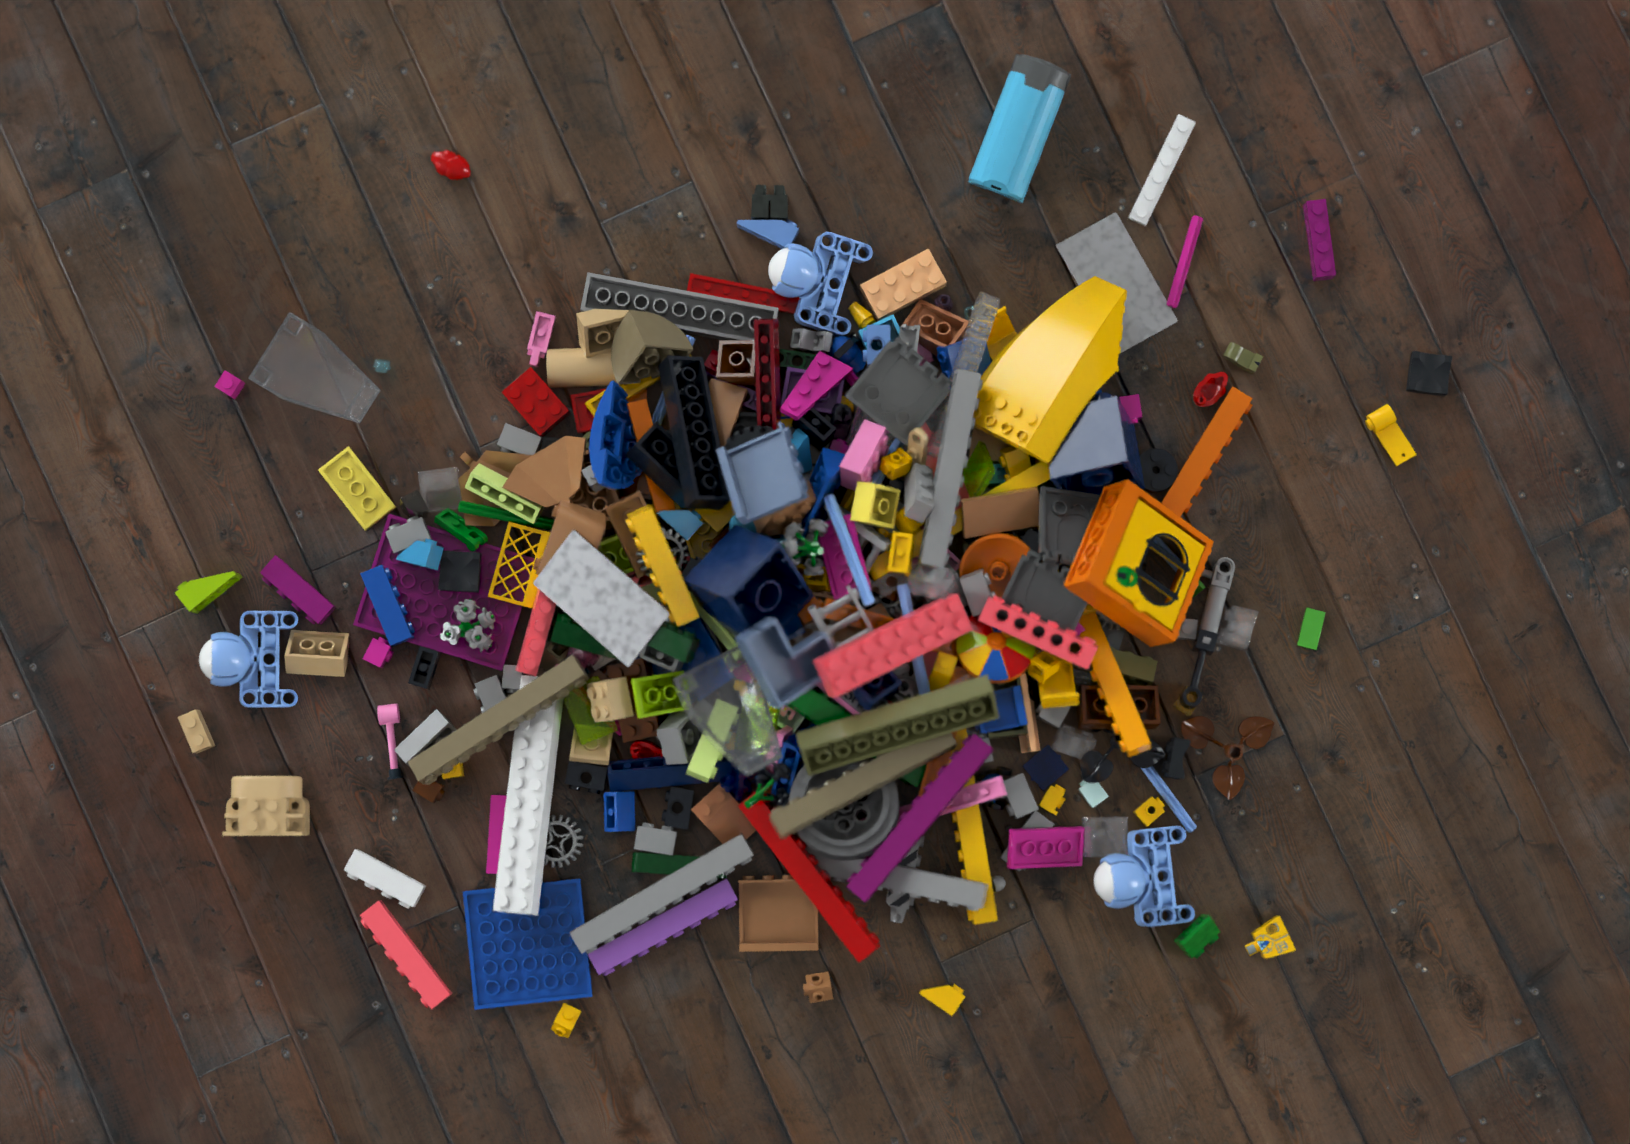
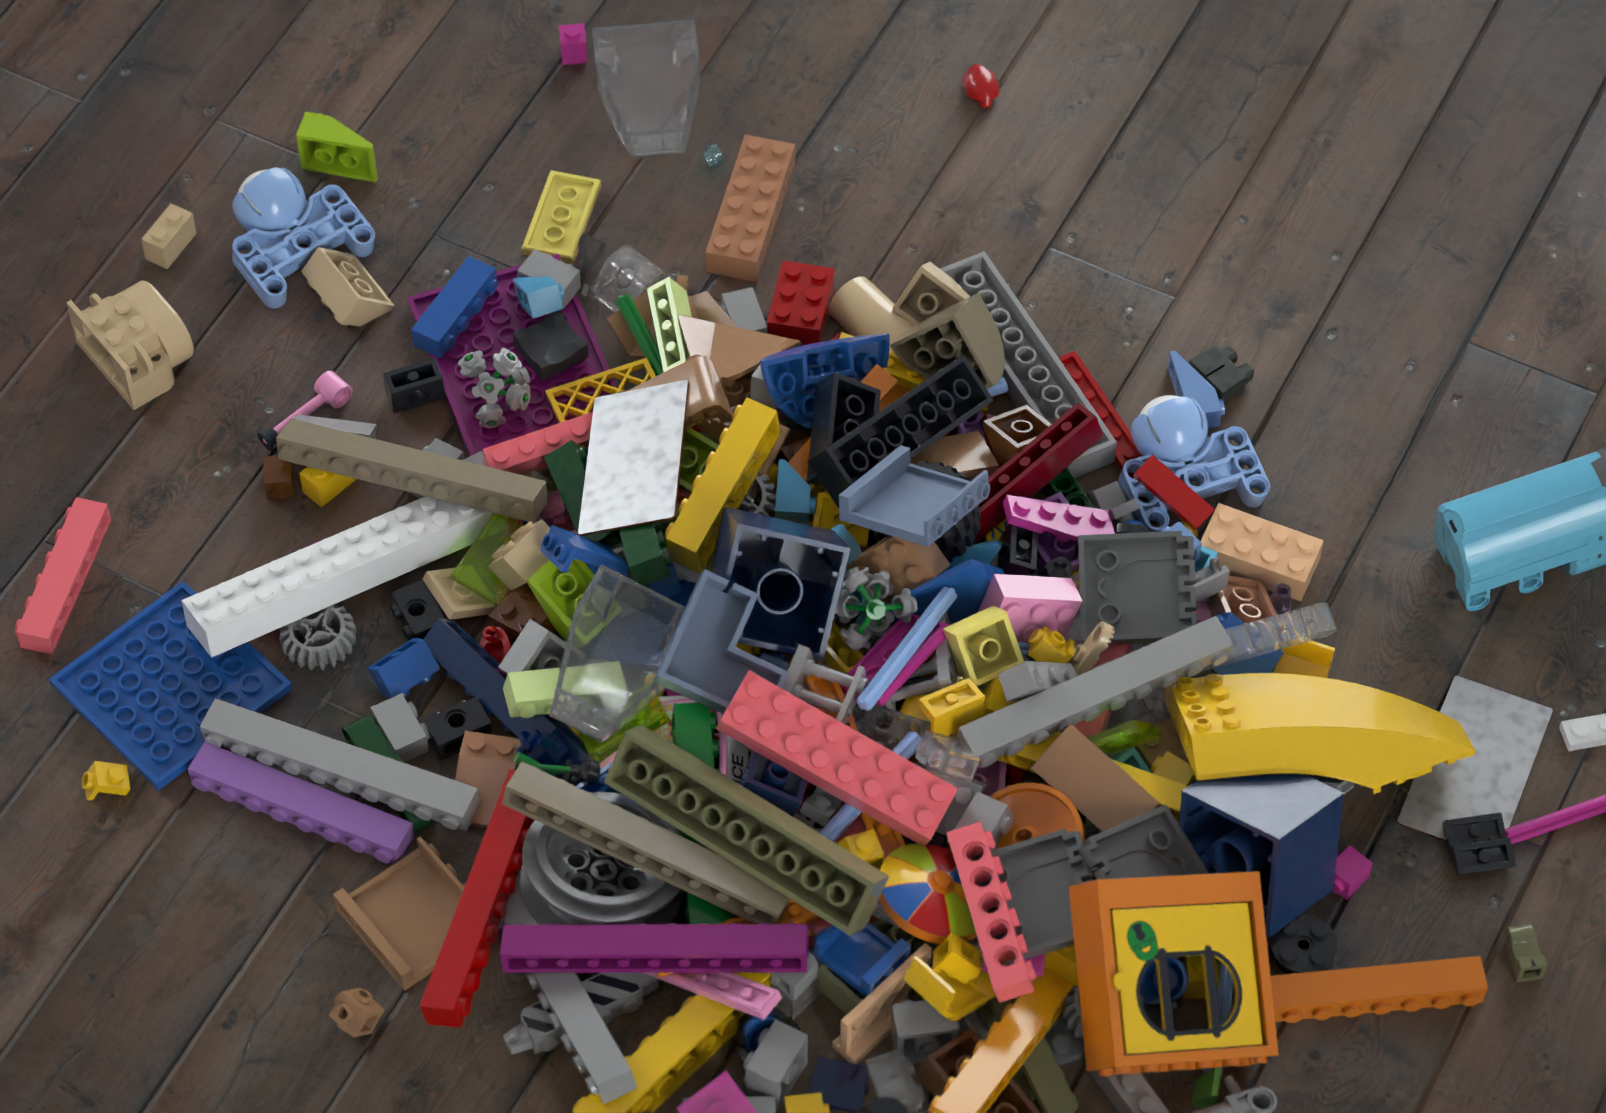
camera: 50 degrees right, 30 degrees down
(298, 590) = (402, 230): magenta brick -> none
(379, 652) = (394, 338): dark pink brick -> none
(382, 876) = (139, 501): white brick -> none
(441, 375) = (750, 208): none -> nougat brick
(456, 526) = (597, 329): green plate -> none
(540, 337) = (876, 266): bright pink hinge -> none
(646, 675) = (564, 546): none -> blue panel
(837, 305) = (1173, 493): none -> red tile
(1165, 325) = (1478, 844): none -> black slope
(1210, 389) = (1453, 940): red arm -> none

